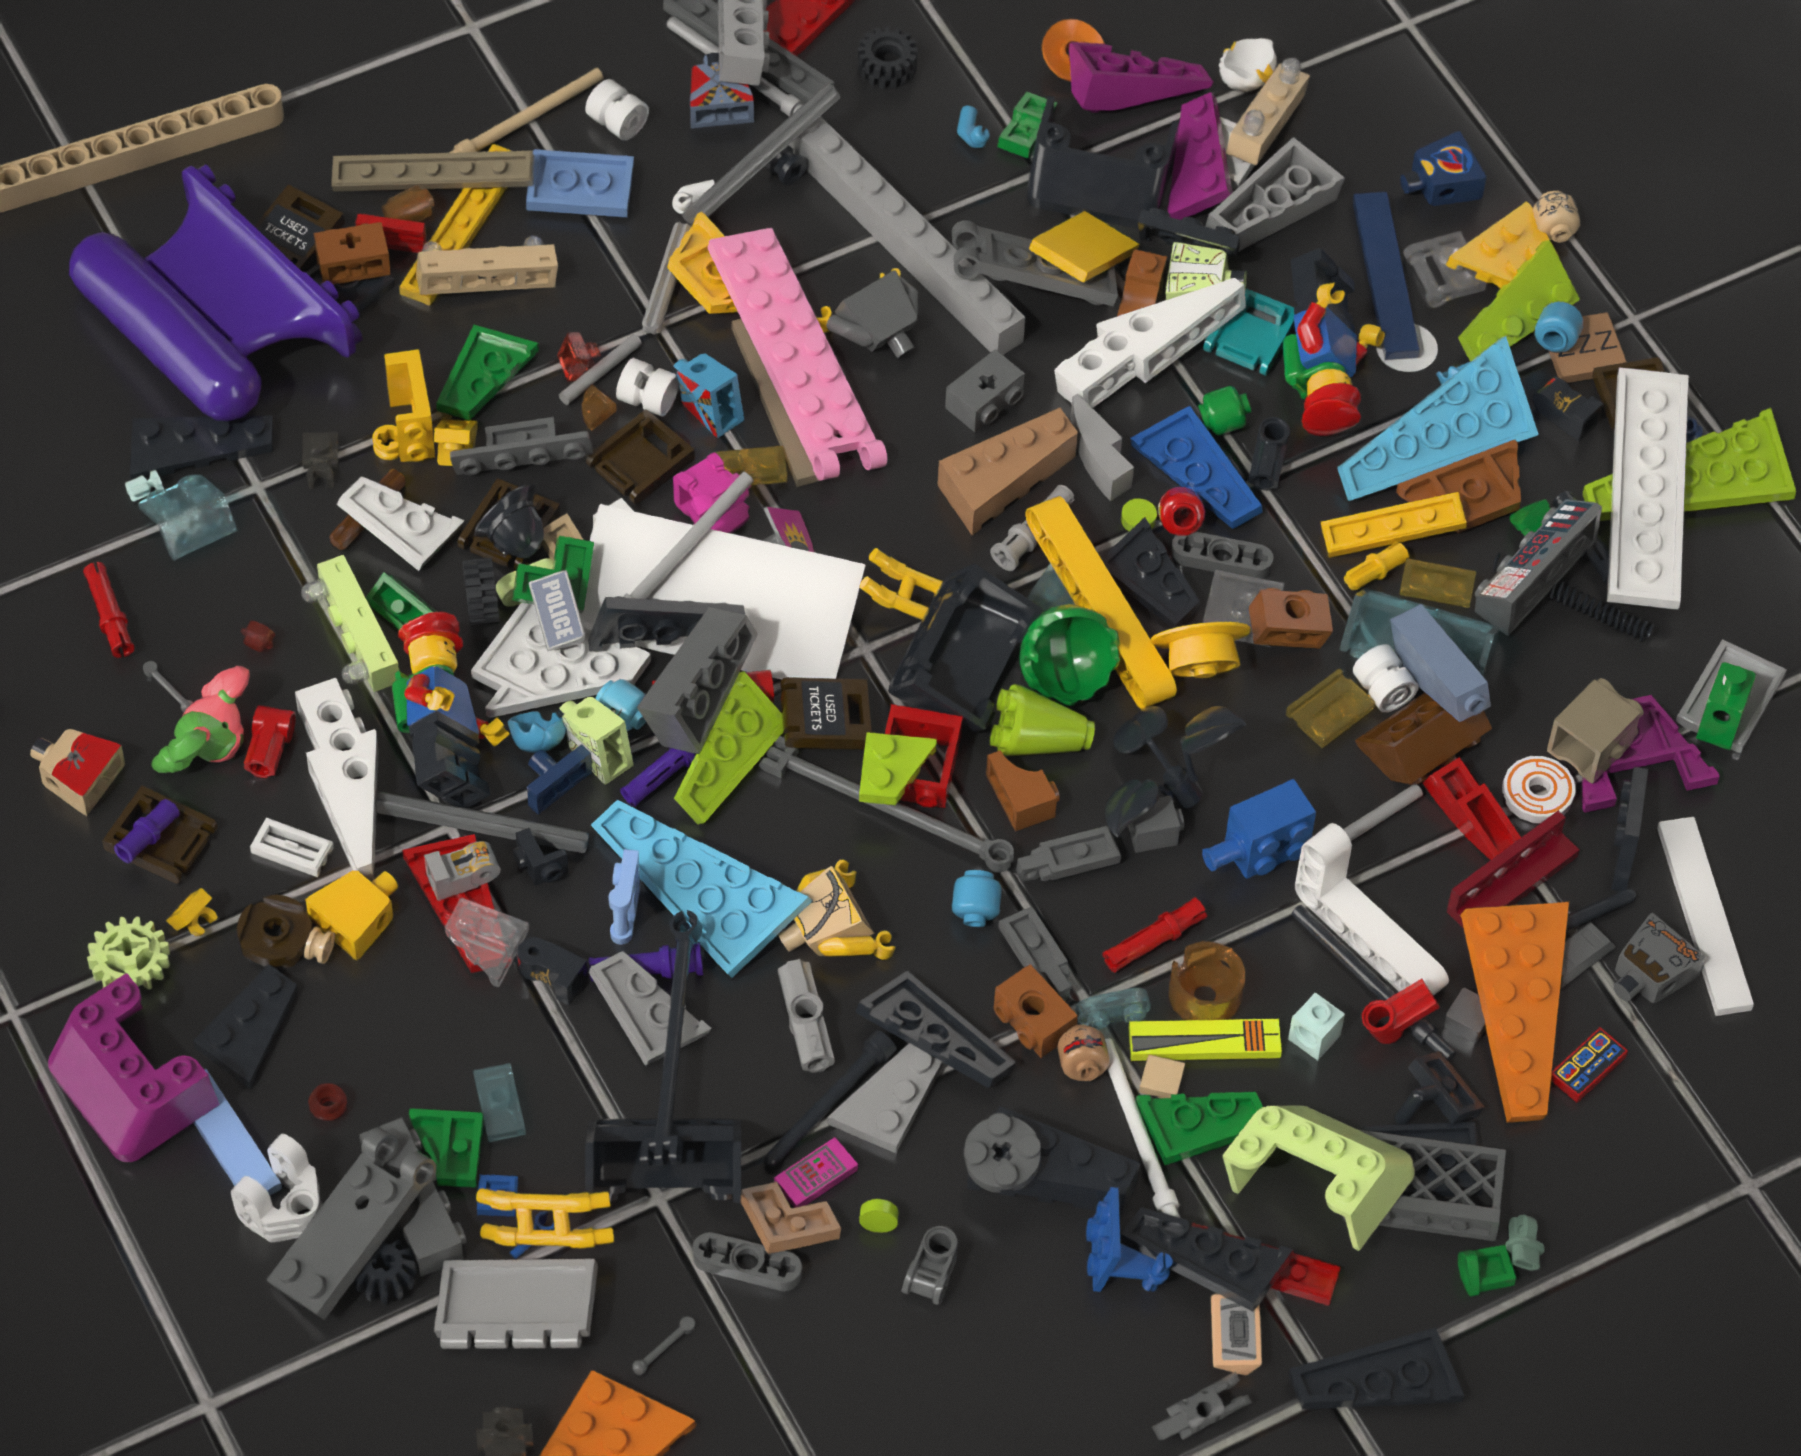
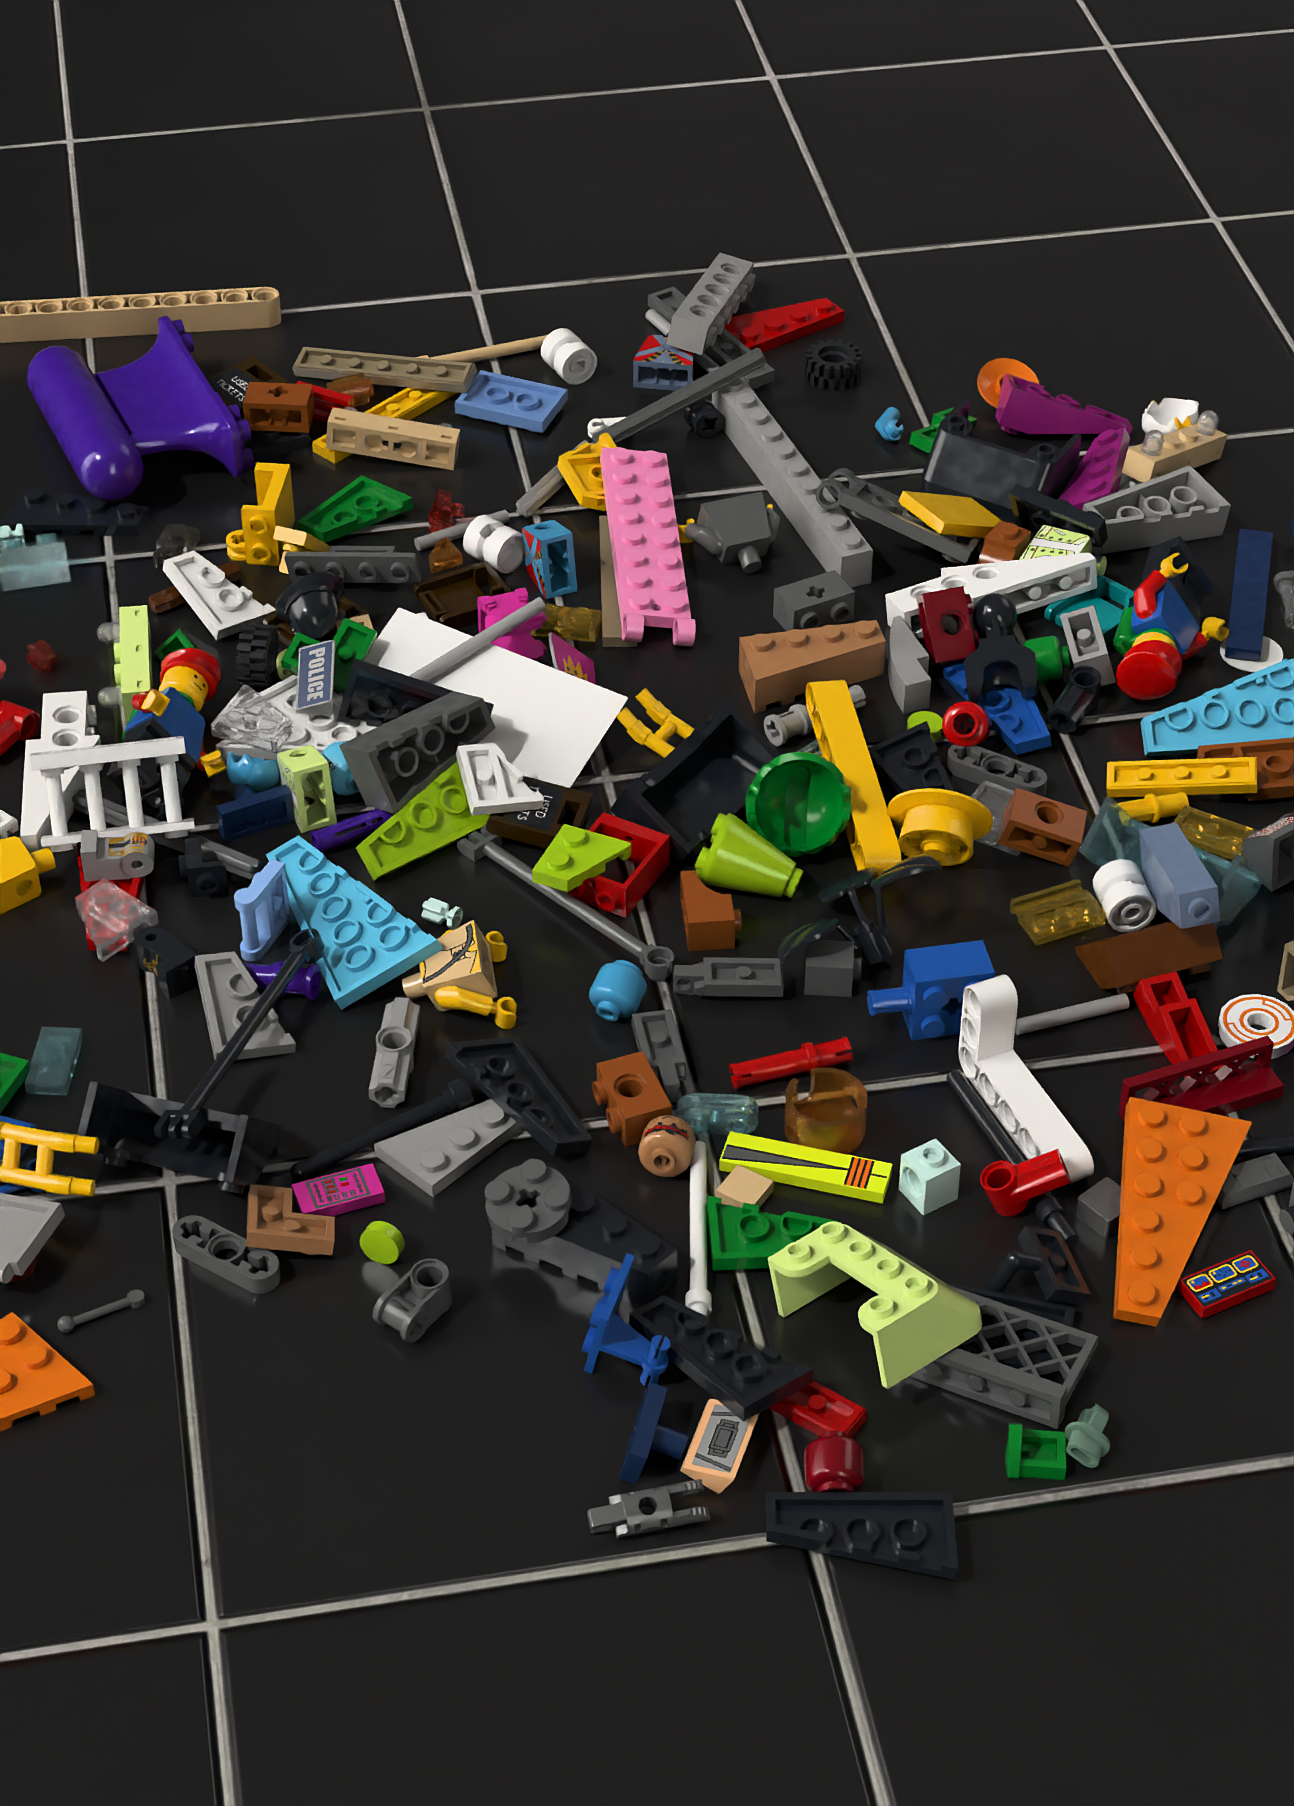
camera: 20 degrees right, 15 degrees down
(410, 783) = (128, 758): none -> white fence
(512, 673) = (252, 722): none -> clear wing
(775, 848) = (438, 912): none -> light aqua piece
(780, 698) = (493, 782): none -> white wing
(1112, 386) = (932, 610): none -> dark red brick
(1175, 1342) = (651, 1436): none -> dark blue tile
(1189, 425) = (999, 656): none -> black piece
(1262, 387) = (1087, 642): none -> light grey brick
(1334, 1328) = (834, 1464): none -> dark red head

